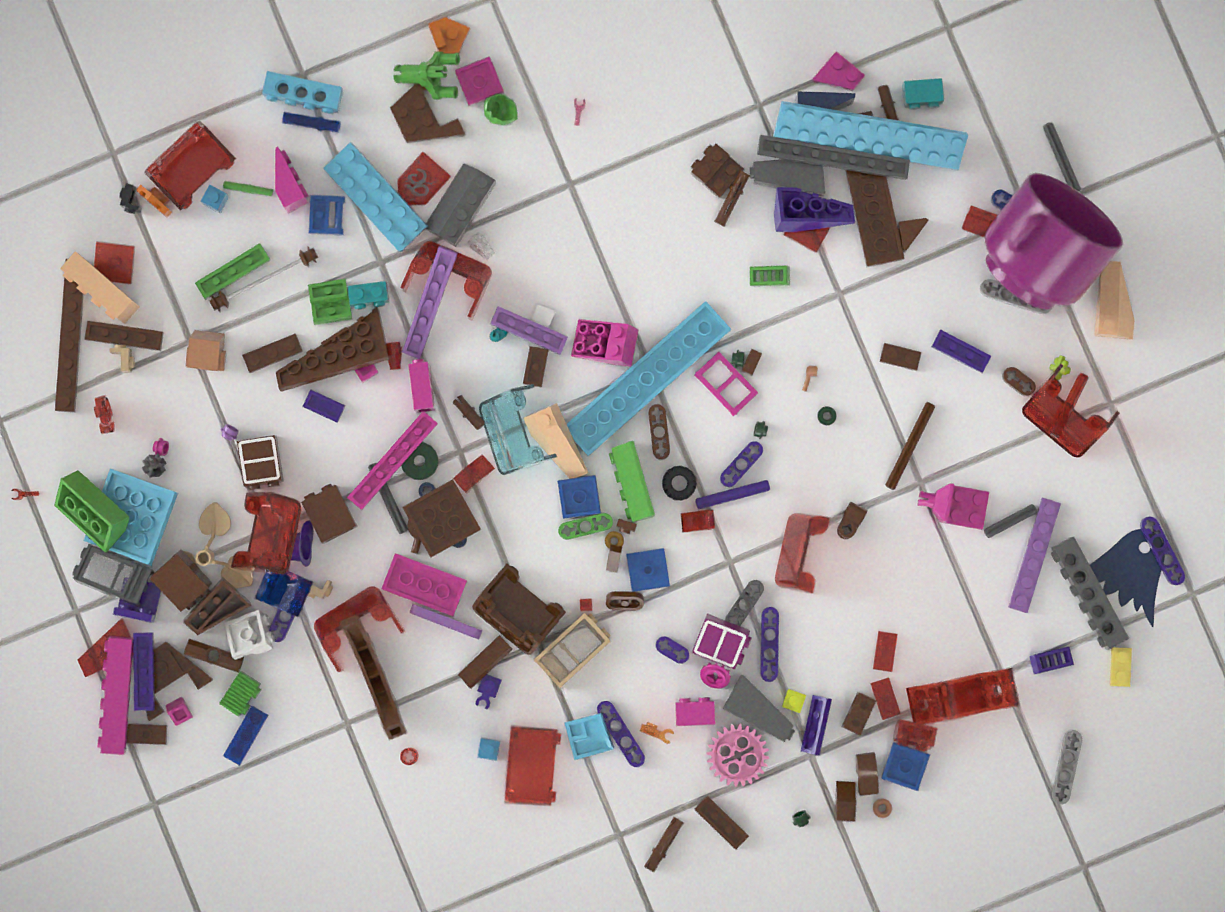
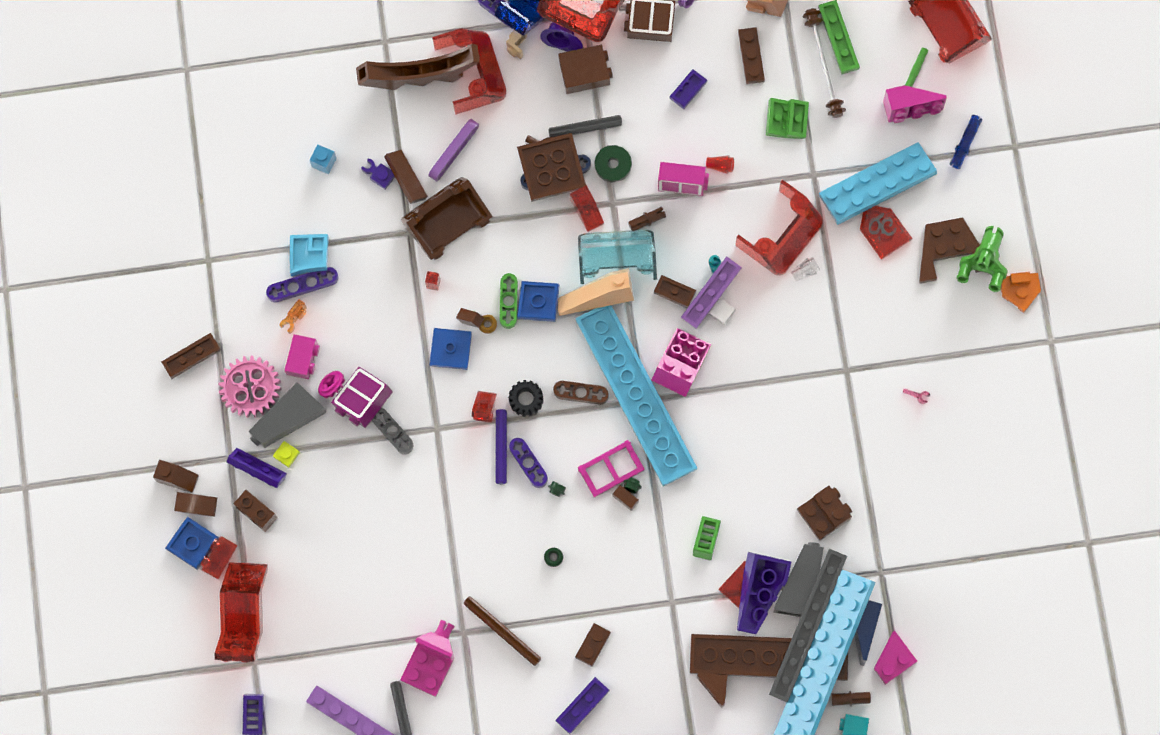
camera: 110 degrees right, 10 degrees down
(214, 198) = (912, 36): dark azure brick -> none
(275, 80) = (1010, 114): medium azure brick -> none
(320, 215) = (872, 128): blue plate -> none
(342, 352) = (735, 119): reddish brown wing -> none
(366, 372) = (713, 134): dark pink plate -> none
(368, 294) = (784, 155): teal brick -> none
(392, 460) = (619, 136): dark pink plate -> none
(414, 753) = (338, 94): clear red bush -> none
(424, 584) = (494, 139): dark pink plate -> none
(429, 302) = (761, 204): medium lavender plate -> none
(460, 204) = (850, 260): dark grey slope -> none
(479, 81) = (969, 307): dark pink plate -> none
(500, 109) = (935, 318): bright green hair -> none
(531, 765) = (297, 191): clear red windscreen -> none
(573, 649) = (394, 260): clear door -> none
(624, 601) = (426, 318): reddish brown plate -> none
(625, 526) = (498, 337): reddish brown plate -> none
(633, 484) = (538, 353): bright green slope -> none
(663, 845) = (181, 292): reddish brown pin -> none
(670, 654) = (364, 348): dark purple beam -> none
(732, 198) = (775, 505): reddish brown pin -> none
(772, 644) = (347, 443): dark purple beam -> none
(794, 550) = (450, 501): clear red windscreen -> none
(801, 818) = (172, 431): dark green plate -> none
(810, 371) = (601, 552): nougat hand -> none
(853, 518) = (446, 555): reddish brown piece -> none
(885, 651) = (308, 553): clear red plate -> none
(885, 698) = (263, 542): clear red plate -> none
(888, 810) = (159, 505): nougat plate -> none
(1069, 767) = (143, 703): light grey beam -> none

